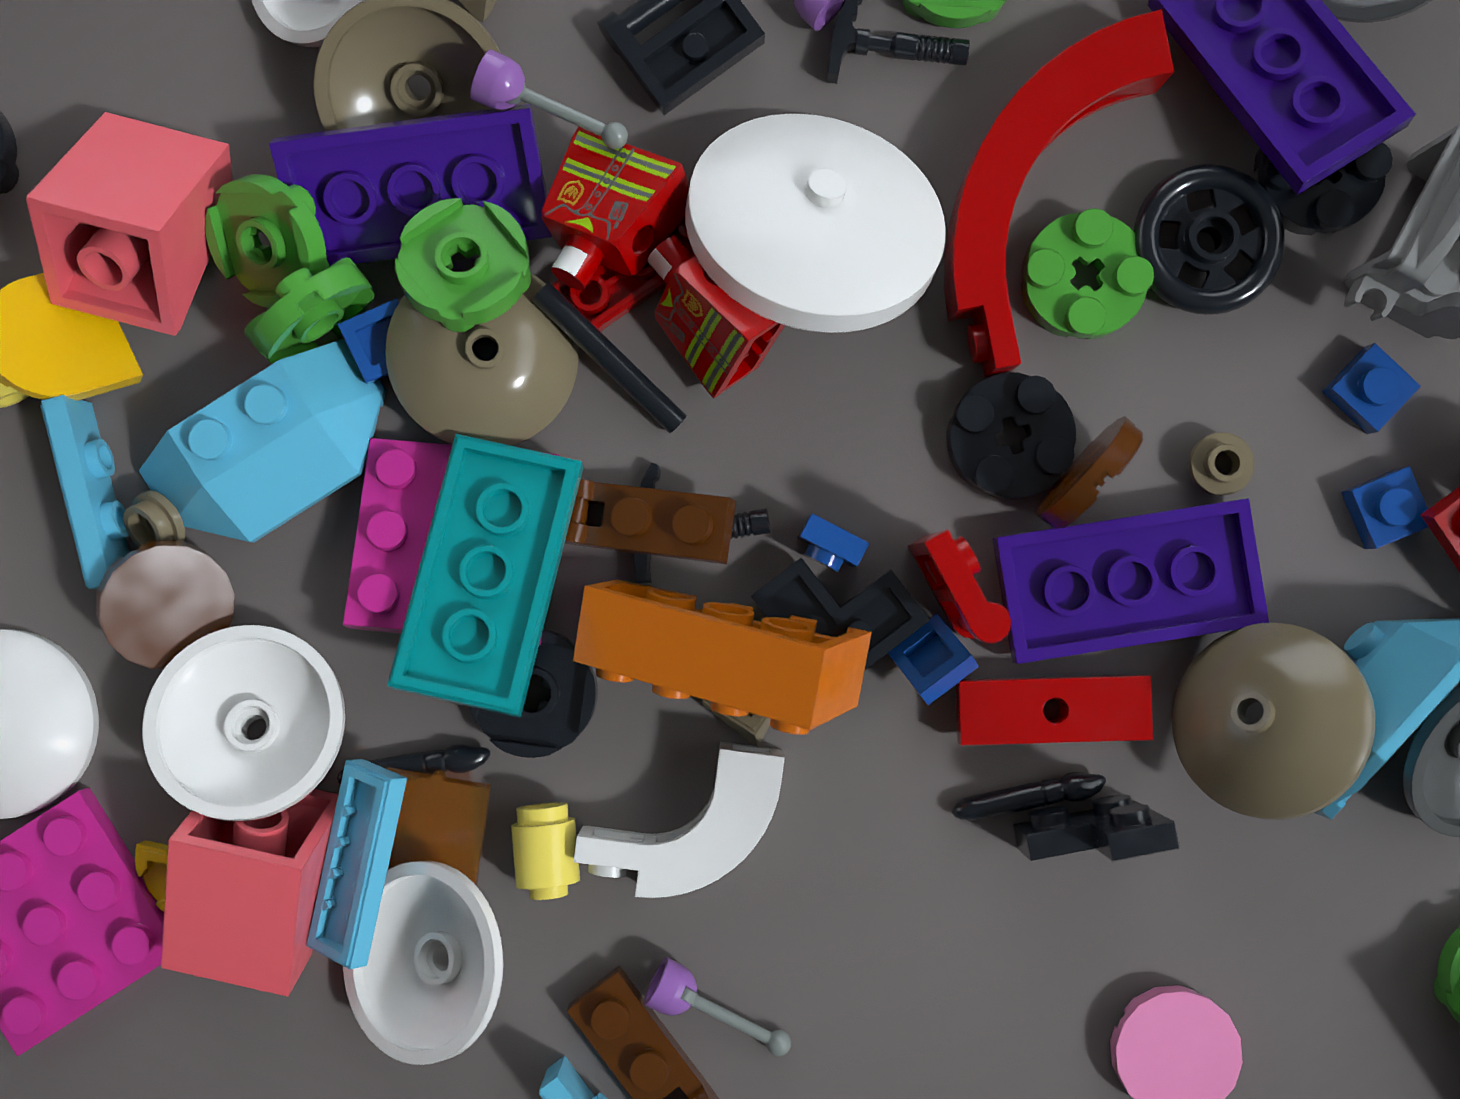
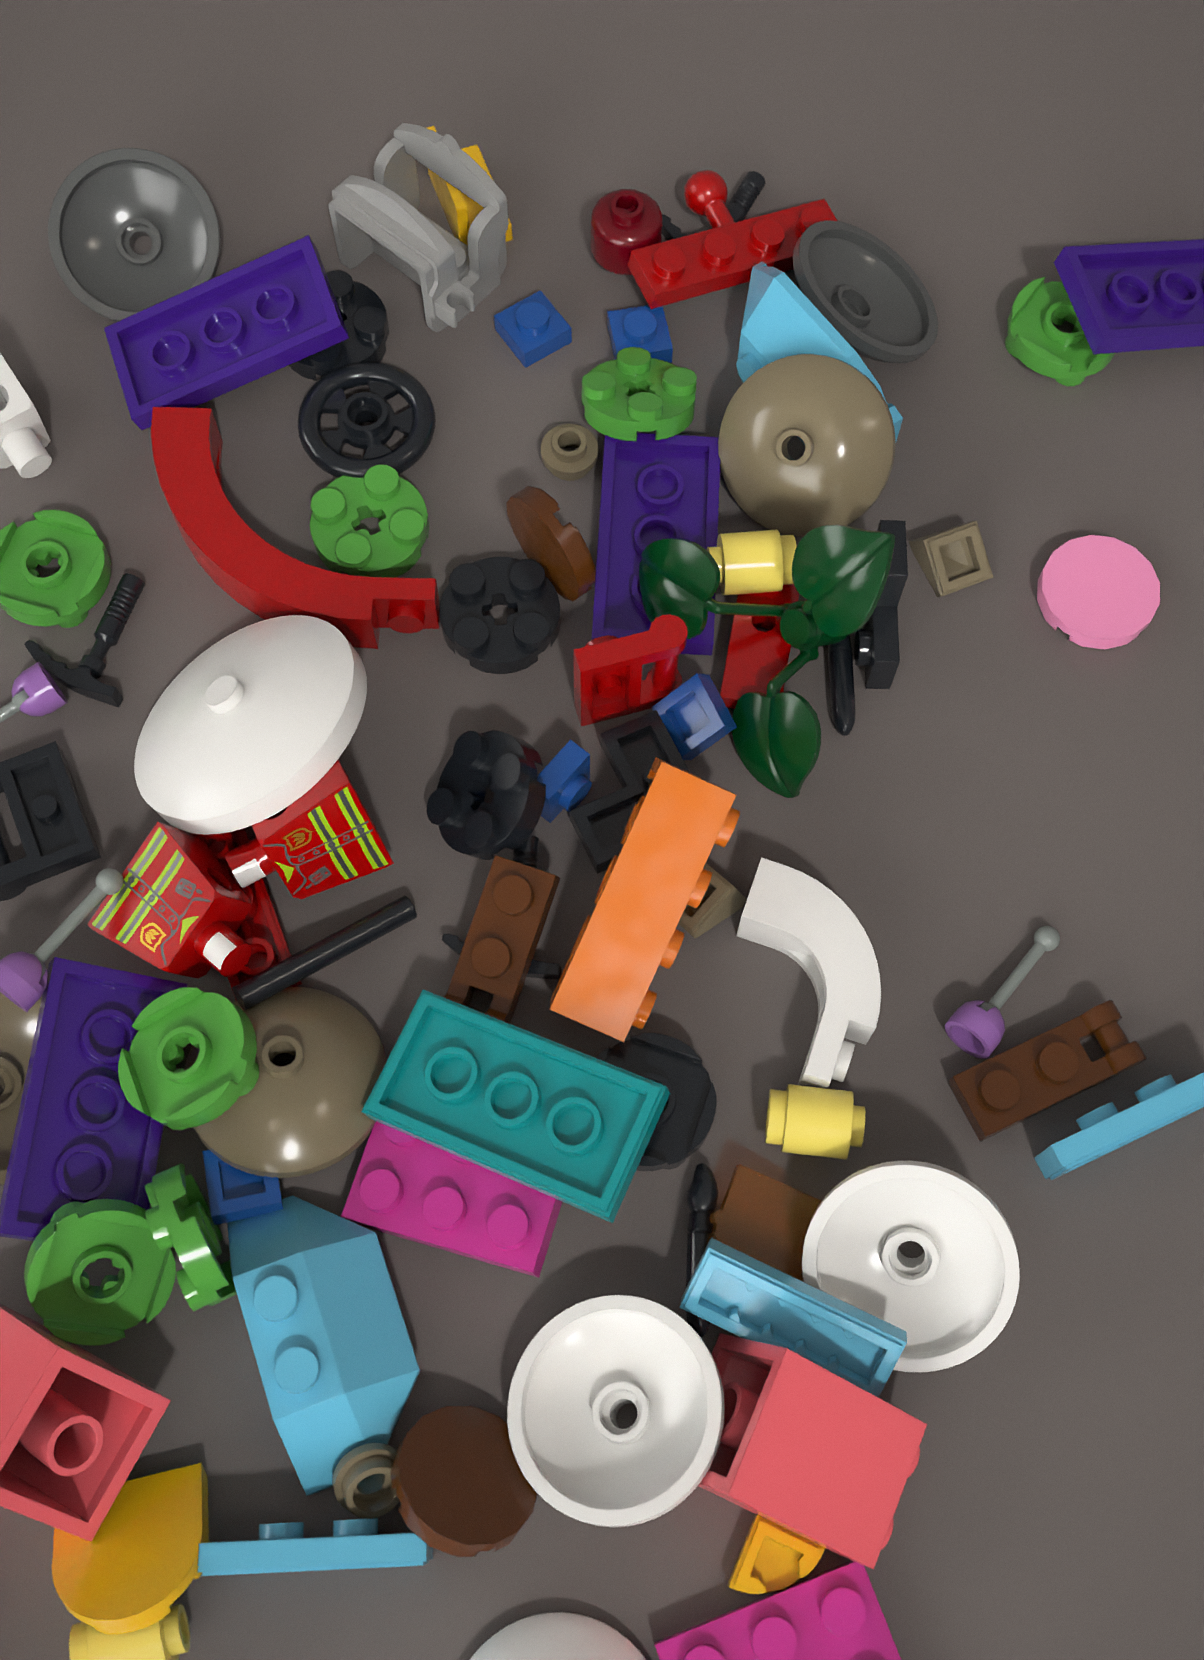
camera: 75 degrees left, 20 degrees down
(793, 446) = (458, 802): none -> black plate
(1074, 788) = (840, 577): none -> dark green plant
(1112, 689) = (754, 561): none -> light yellow brick
(1182, 893) = (953, 558): none -> dark tan slope
(1330, 518) = (638, 396): none -> bright green plate

